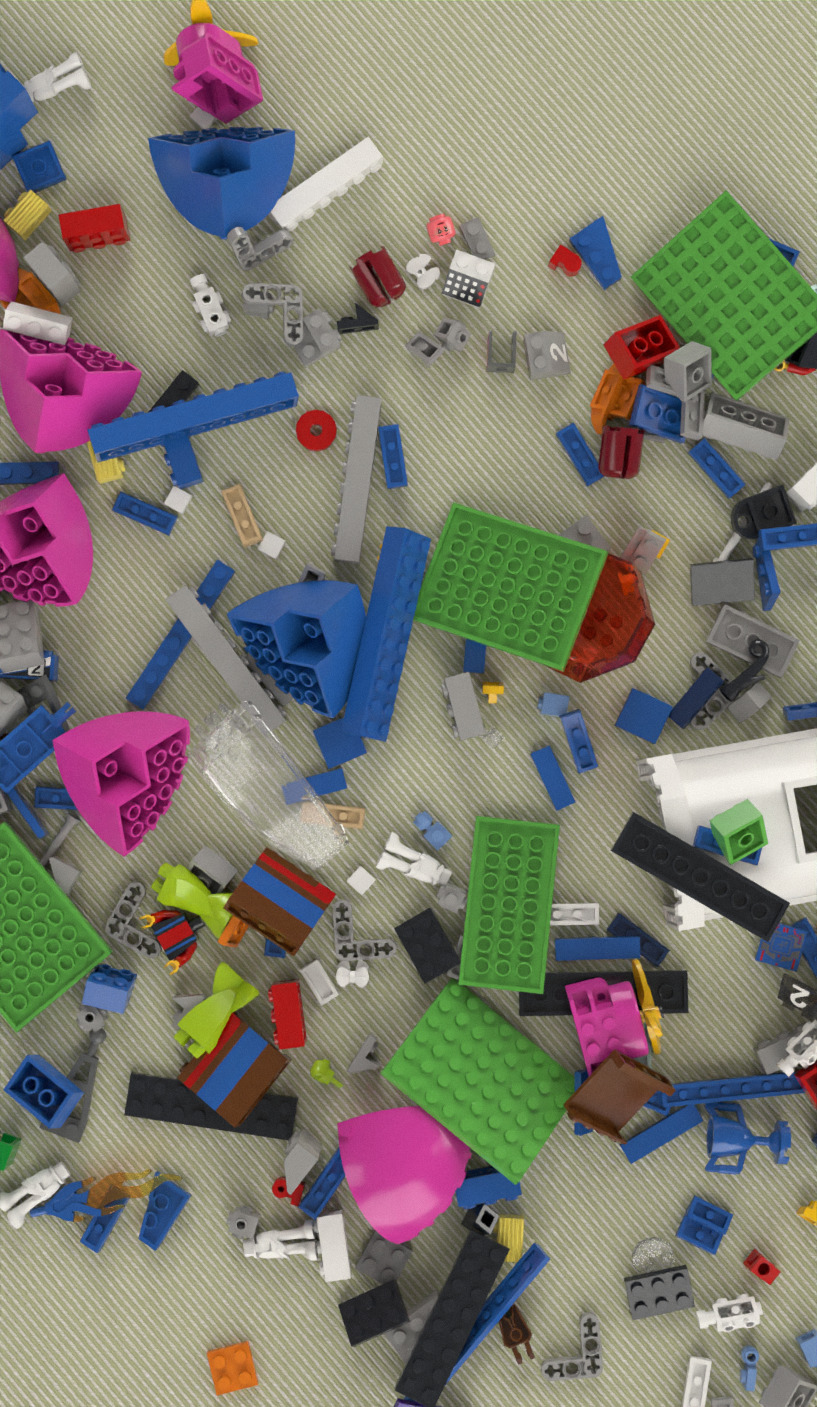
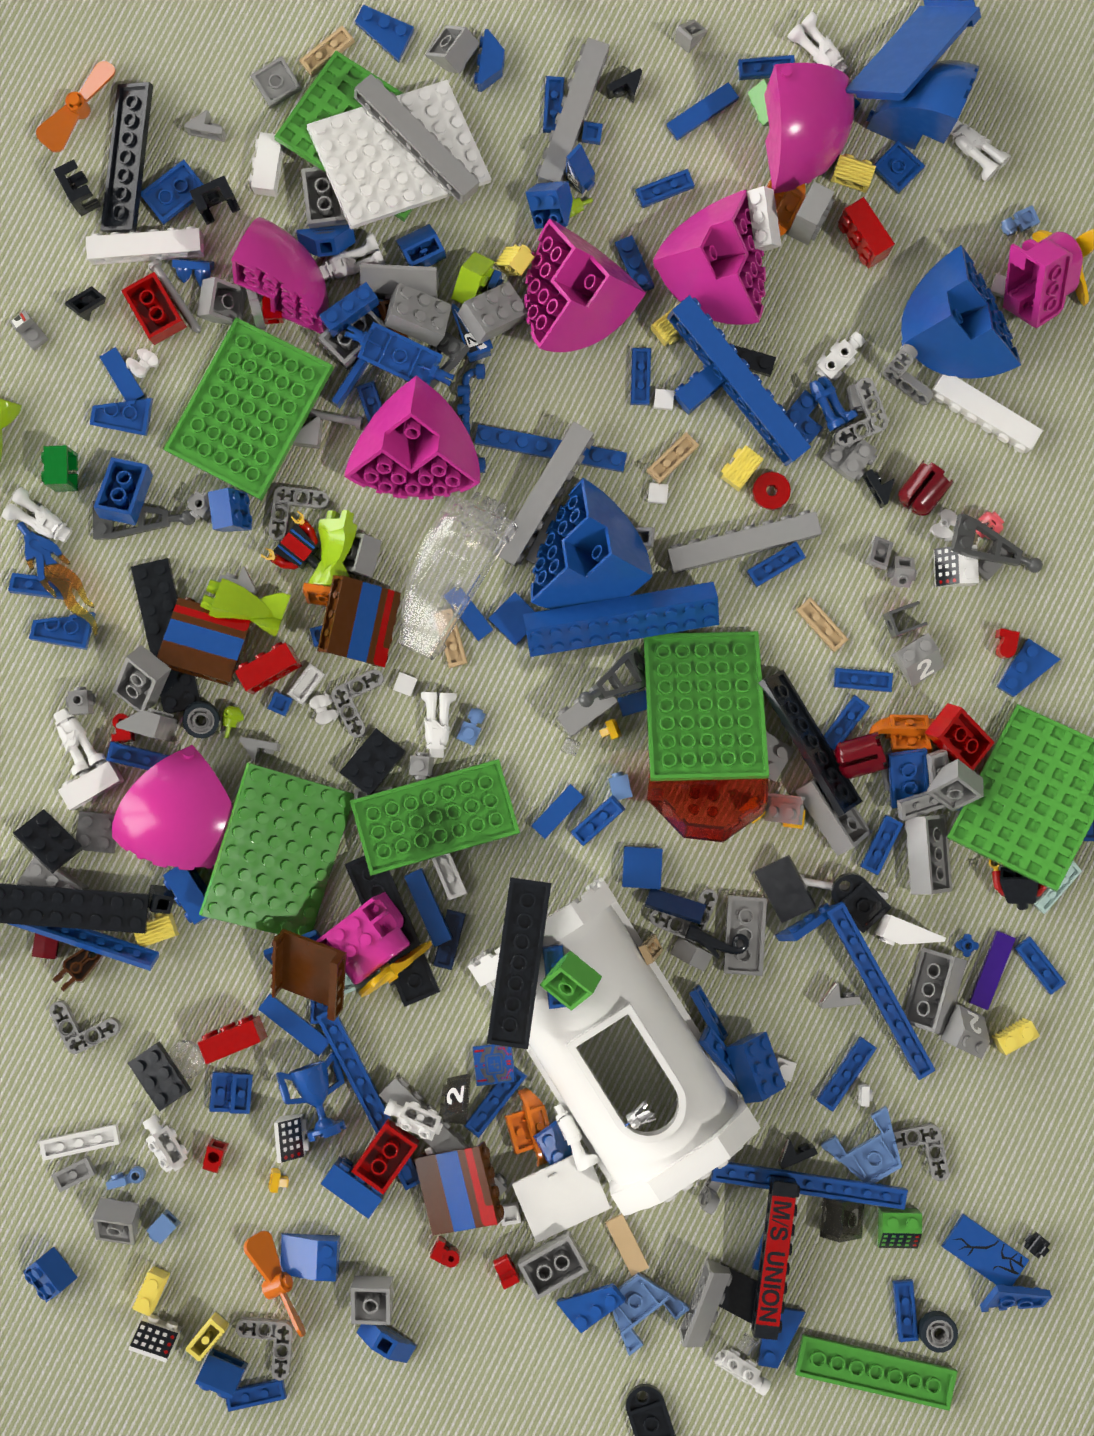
camera: 70 degrees right, 0 degrees up
(103, 706) = (464, 408): none -> blue bar
(146, 65) = (1023, 219): none -> medium blue plate
(236, 335) = (823, 390): none -> blue piece
(248, 1149) = (141, 679): none -> light grey brick
(249, 369) = (800, 414): none -> blue plate
(281, 450) = (742, 467): none -> light yellow brick
(323, 1107) = (201, 730): none -> wheel
(329, 1016) = (280, 704): none -> blue plate
(436, 639) = (636, 666): none -> dark grey plate
(444, 258) = (963, 542): none -> dark grey plate
(472, 436) = (822, 624): none -> tan tile
(481, 1359) = (45, 947): none -> dark red piece
(544, 418) = (863, 680): none -> blue tile
(586, 496) = (810, 742): none -> black plate
(651, 1201) = (232, 1038): none -> red brick
(665, 502) = (842, 831): none -> light grey slope
(730, 740) = (650, 949): none -> tan tile
(774, 1181) = (291, 1137): none -> slope

